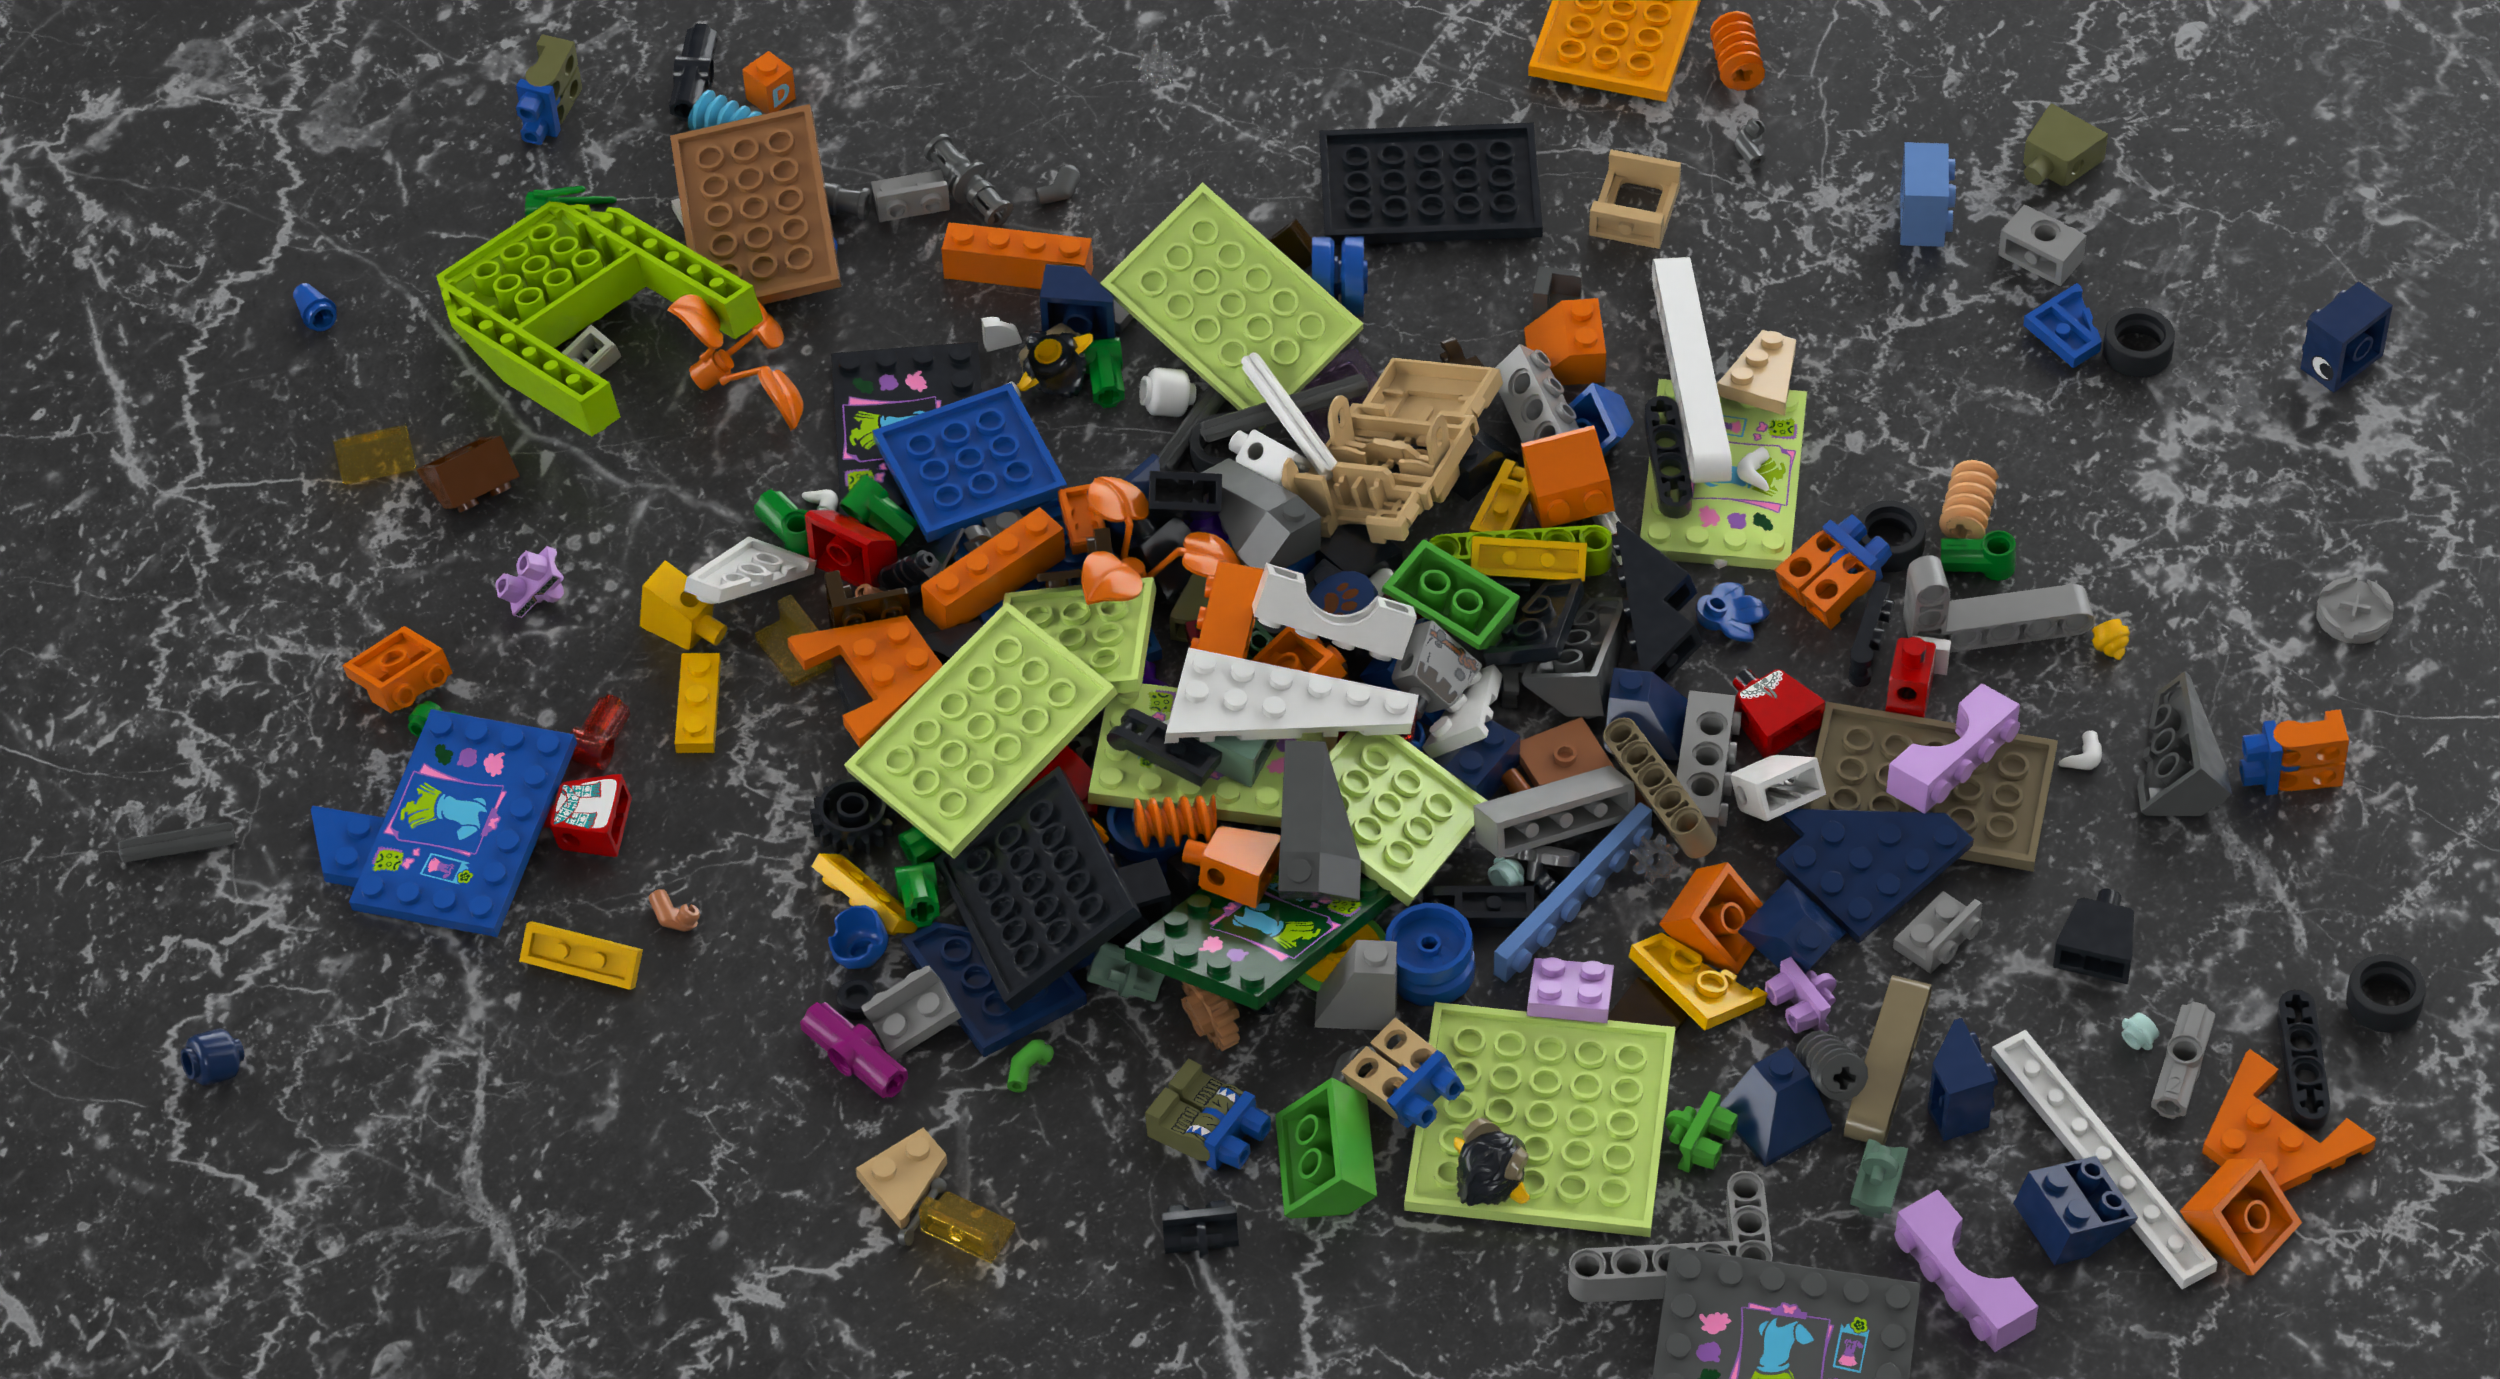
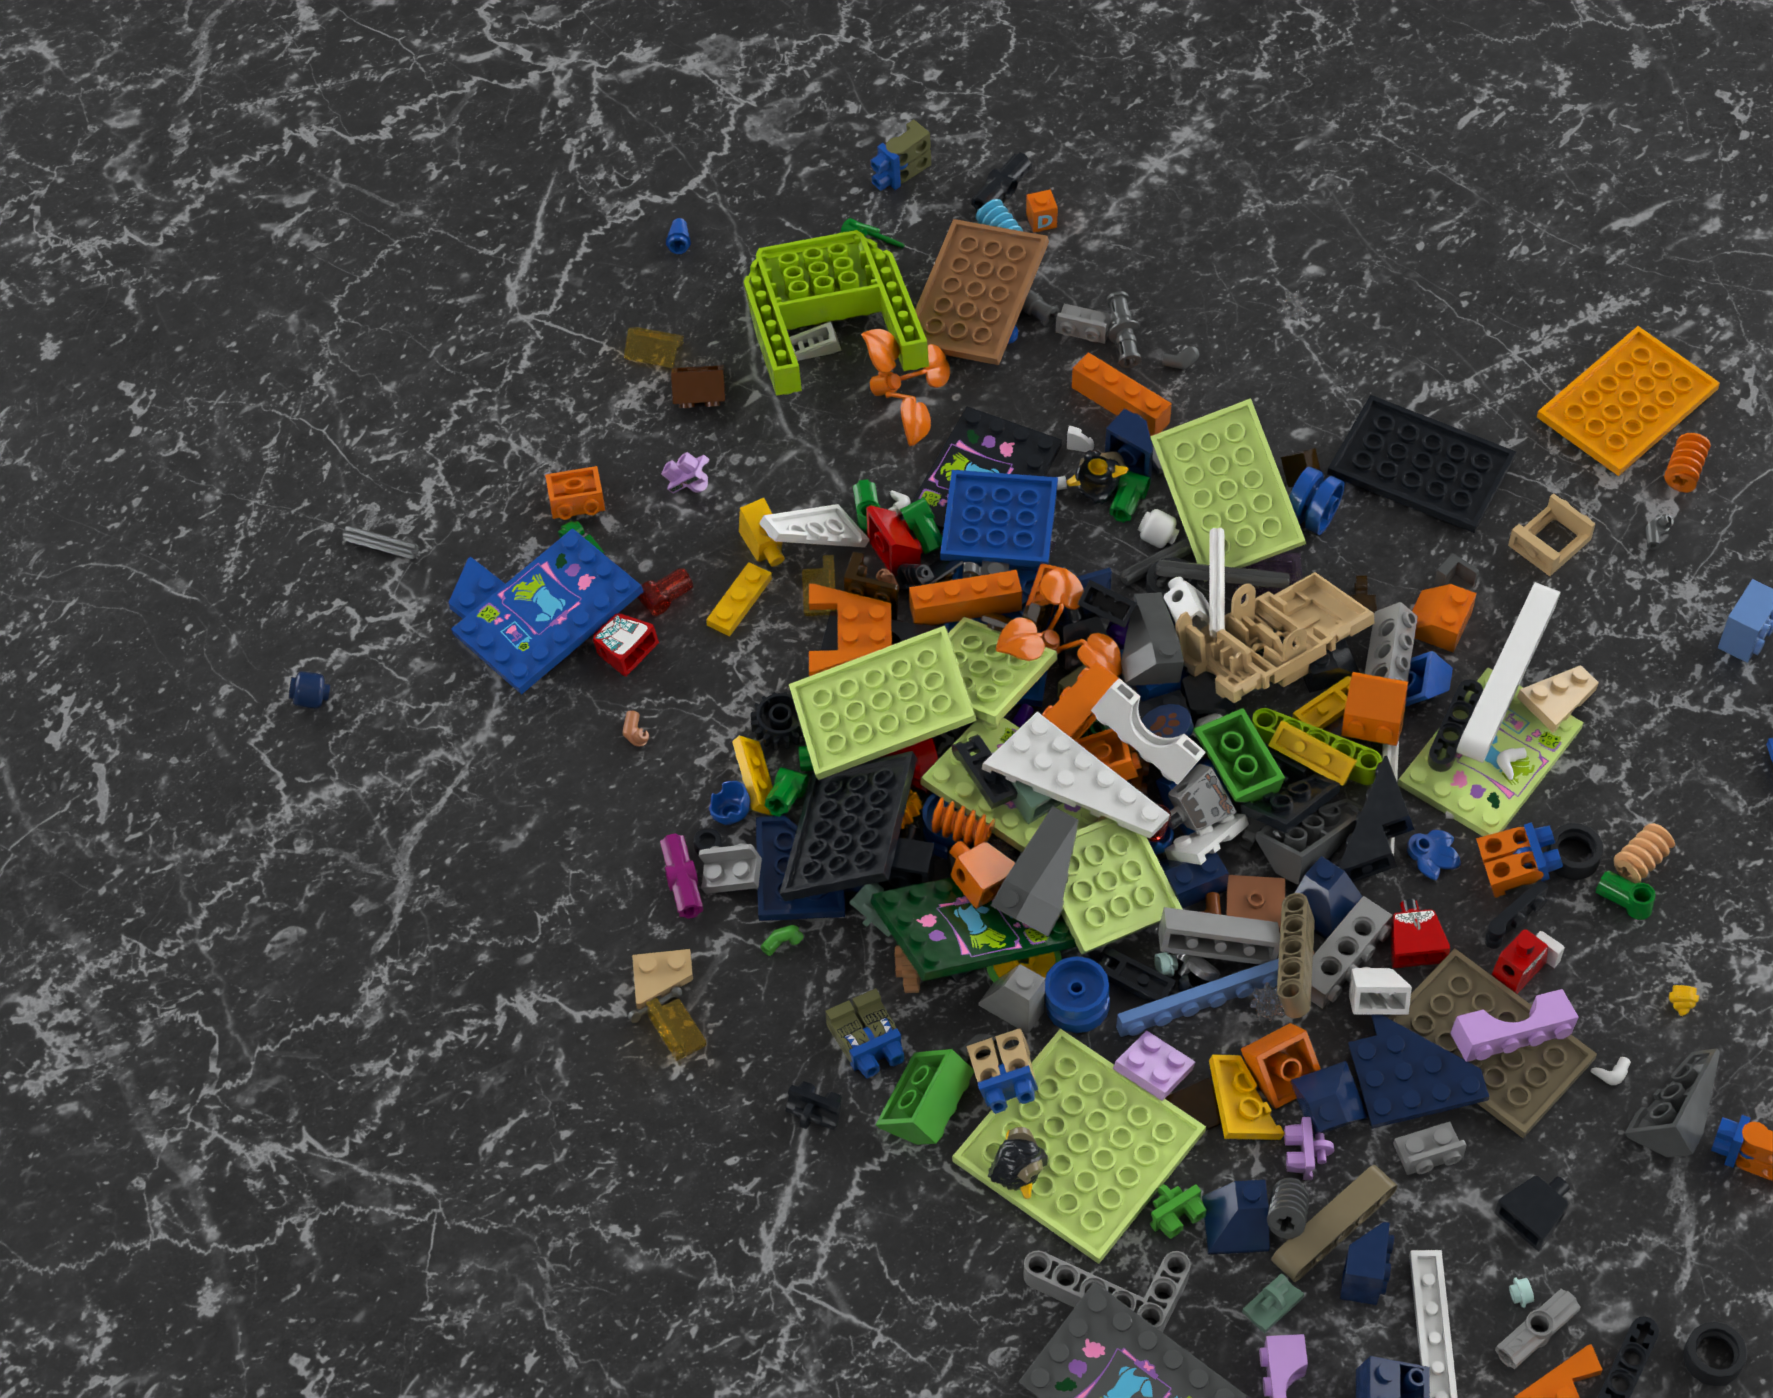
camera: 30 degrees right, 5 degrees up
(581, 955) = (560, 731): yellow plate -> none
(1990, 618) = (1608, 944): light grey beam -> none

